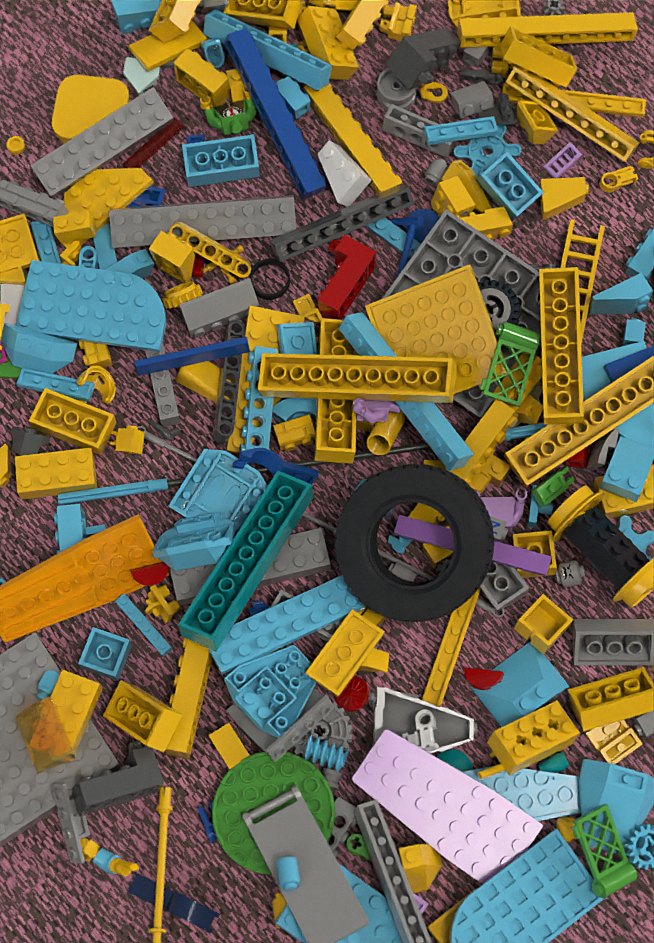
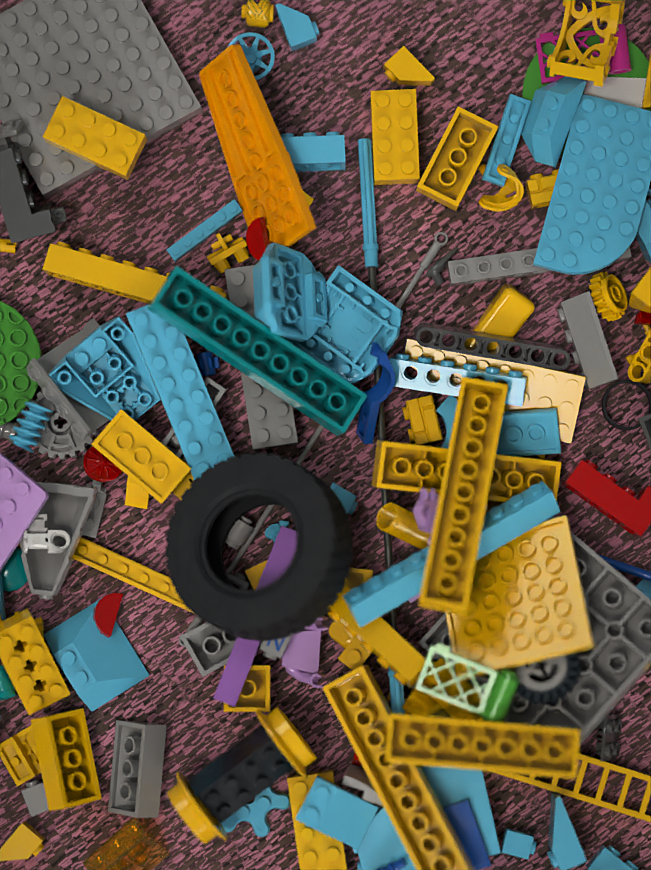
camera: 95 degrees right, 15 degrees up
(27, 440) = (437, 105): dark grey brick -> none
(45, 735) = (66, 113): clear yellow slope -> none
(47, 684) = (133, 118): medium azure arm -> none
(94, 530) = (319, 181): medium azure tile -> none
(105, 654) = (171, 185): medium azure brick -> none
(129, 440) = (427, 223): yellow brick -> none
(142, 715) = (88, 222): yellow brick -> none
(192, 356) = (520, 303): blue tile -> none
(229, 745) = (54, 320): yellow panel -> none
(307, 308) = (583, 448): yellow slope -> none
(534, 509) = (306, 699): medium azure tile -> none
(543, 624) = (161, 689): yellow piece -> none
(552, 487) = (324, 718): bright green hinge -> none
(570, 573) = (221, 728): light grey head -> none

